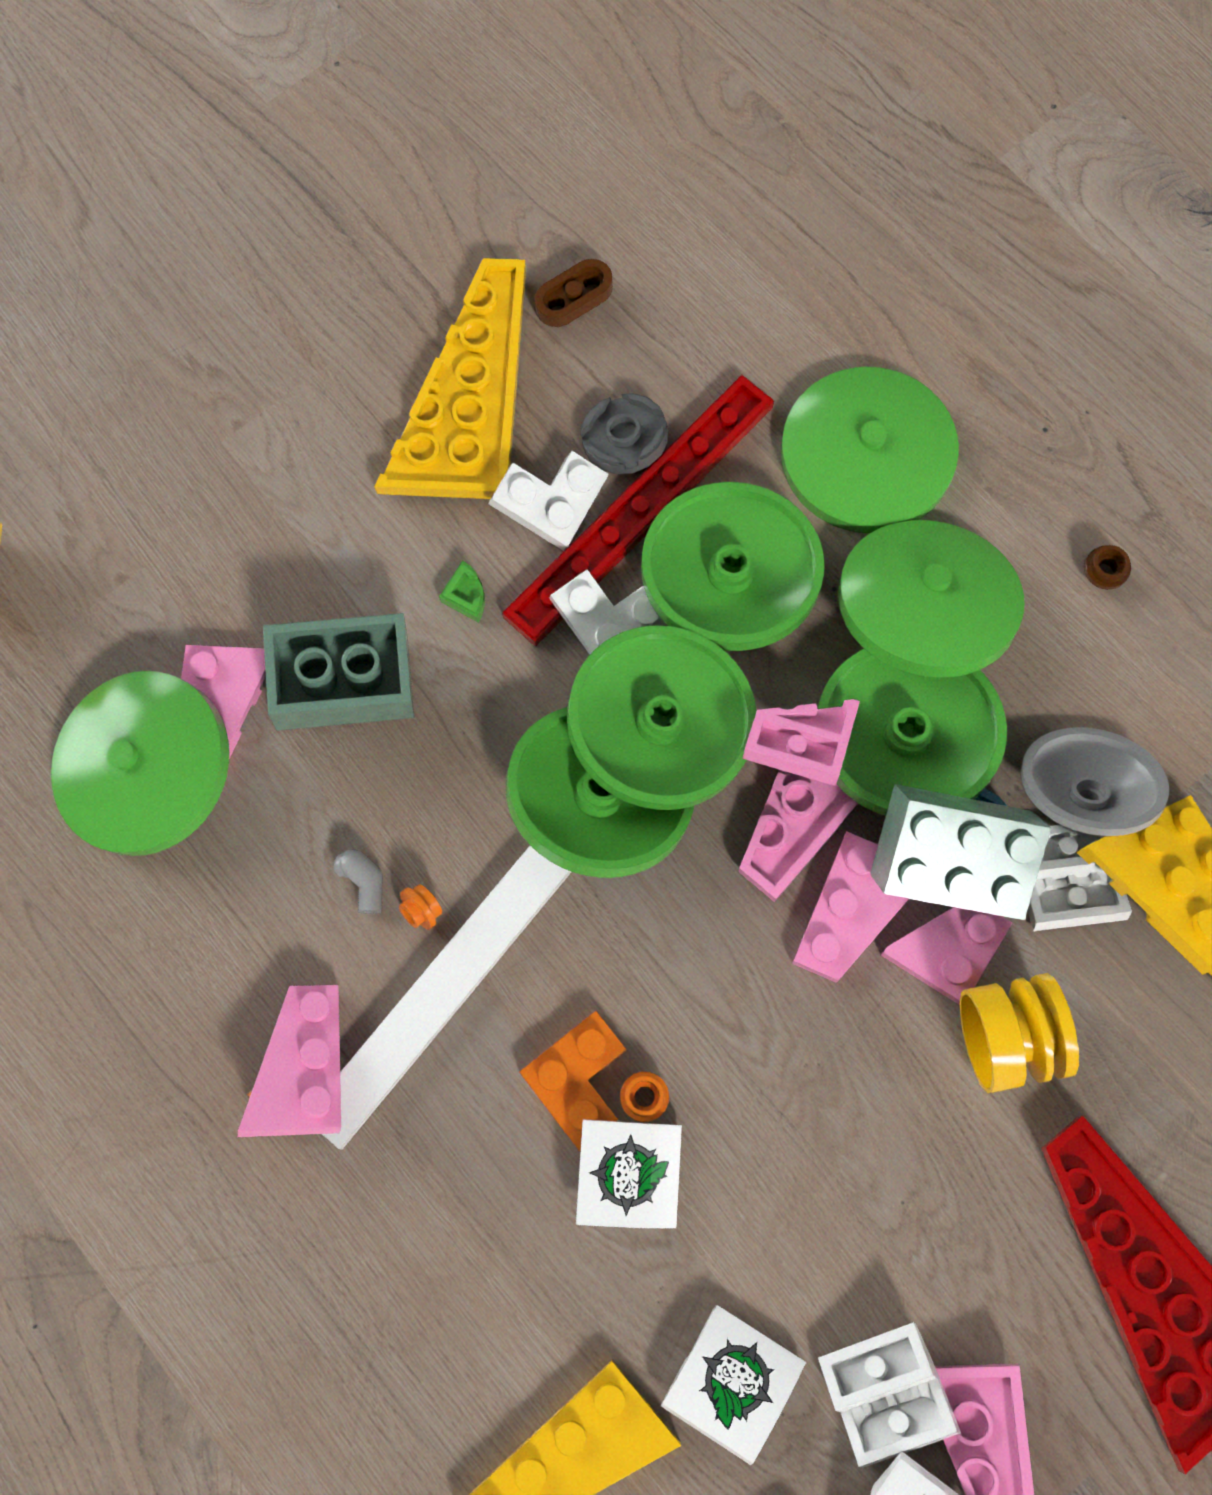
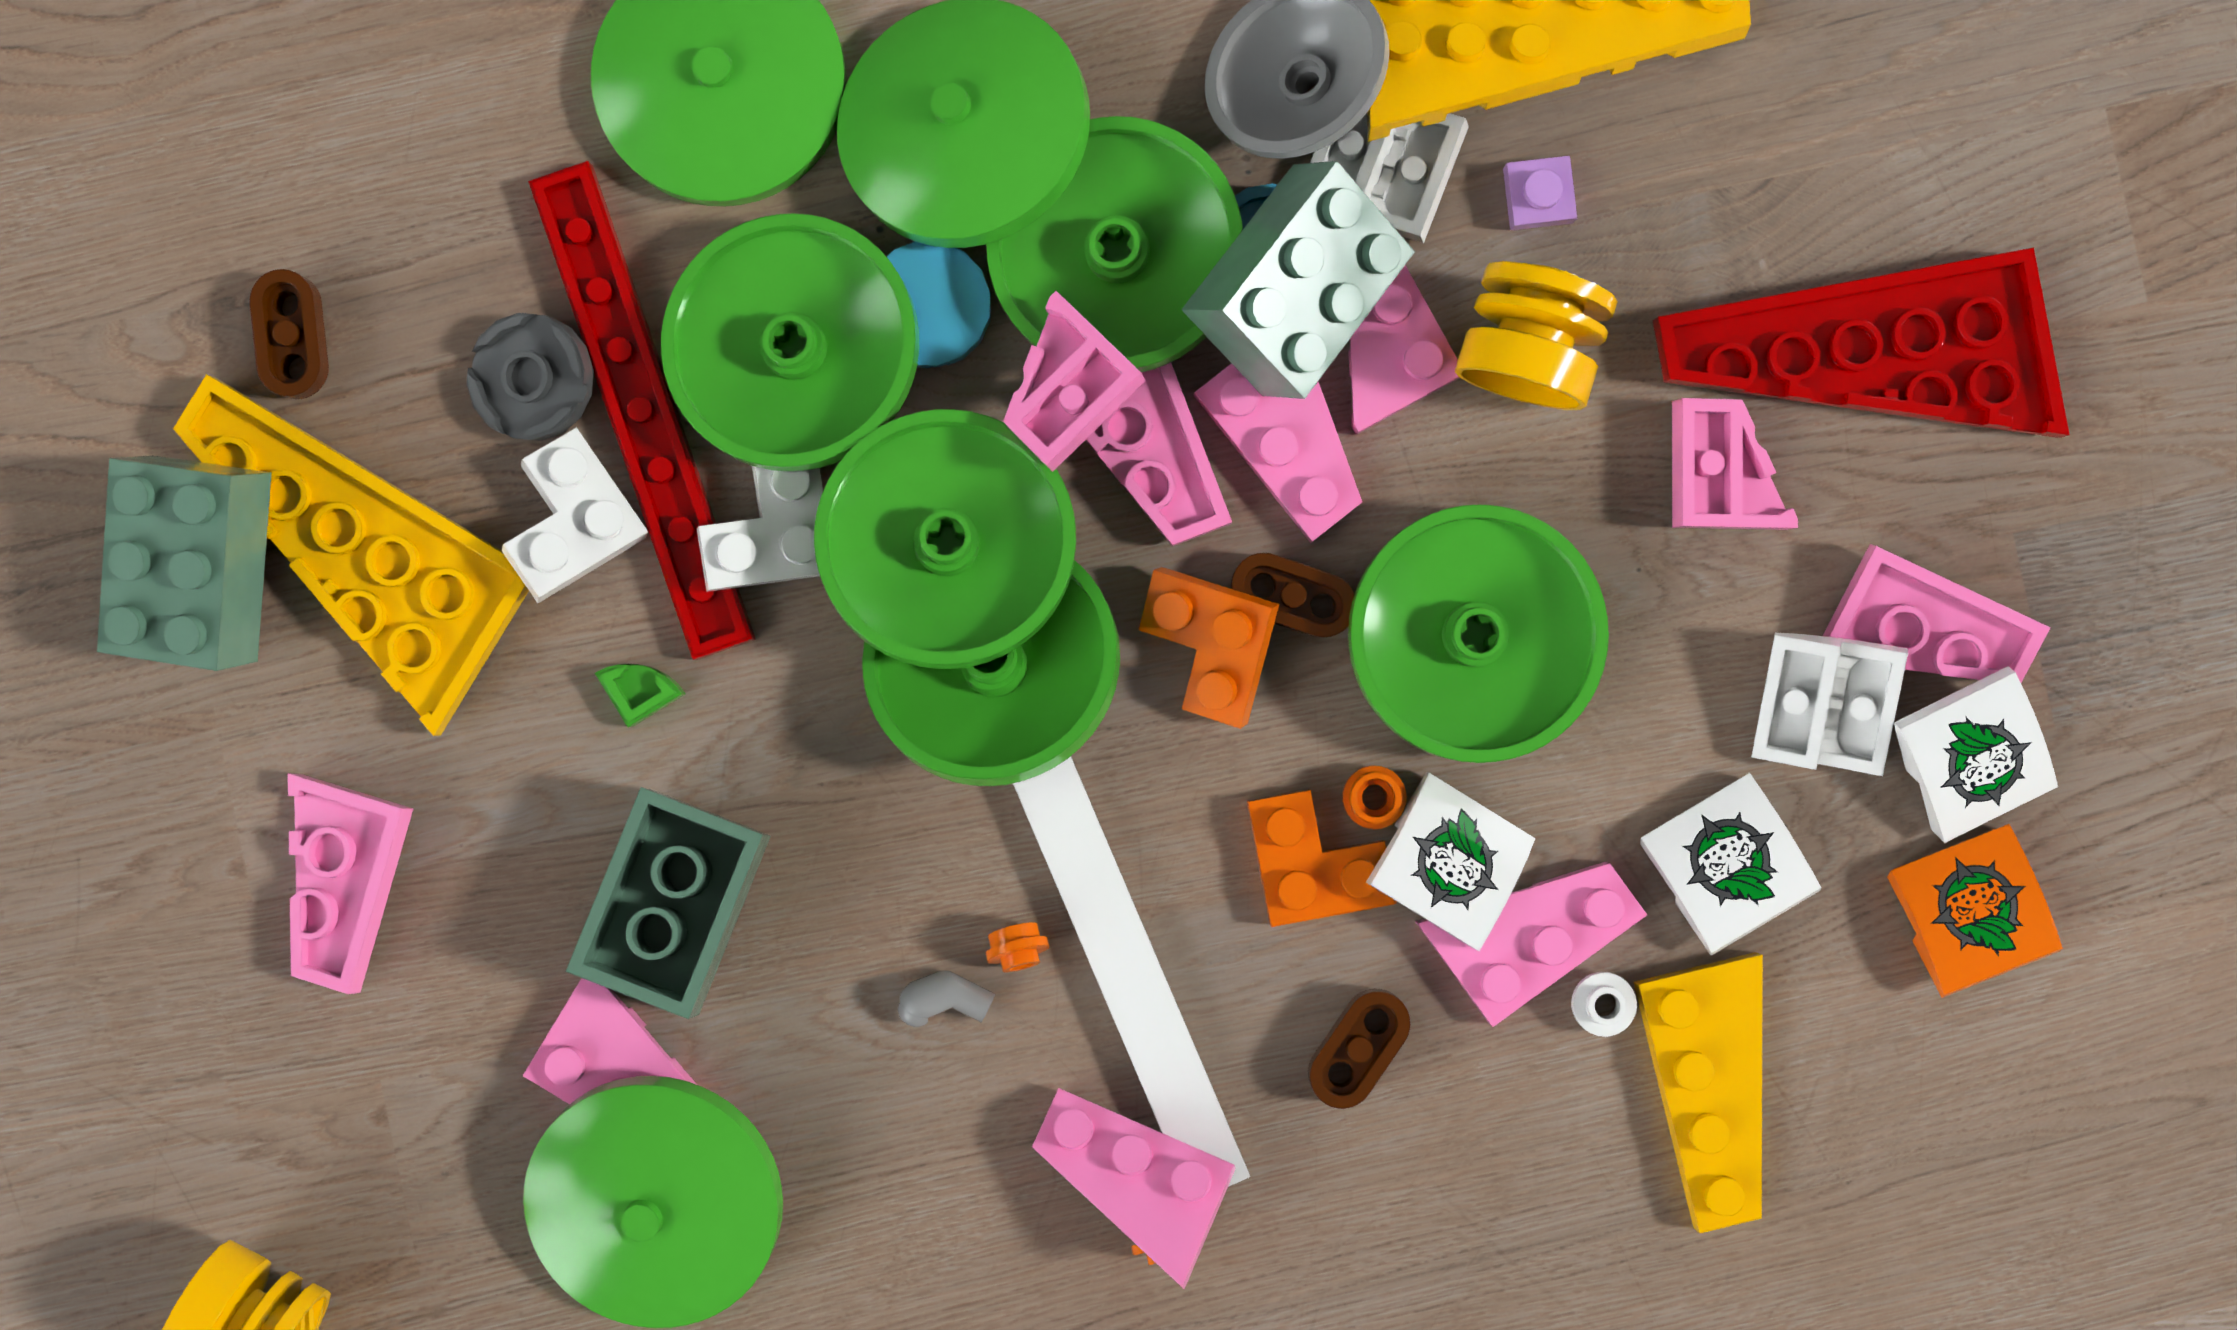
camera: 70 degrees left, 15 degrees up
(267, 480) = (344, 872): none -> bright pink wing
(406, 298) = (183, 562): none -> sand green brick
(466, 1178) = (1362, 1049): none -> reddish brown plate
(600, 1334) = (1584, 1004): none -> white plate
(608, 1268) = (1539, 938): none -> bright pink wing
(700, 935) = (1229, 636): none -> orange plate
(750, 968) = (1293, 591): none -> reddish brown plate
(795, 1105) = (1478, 633): none -> bright green dish
(812, 649) = (948, 301): none -> medium azure tile
(1005, 1223) = (1721, 470): none -> bright pink wing
(1114, 991) = (1540, 193): none -> lavender plate

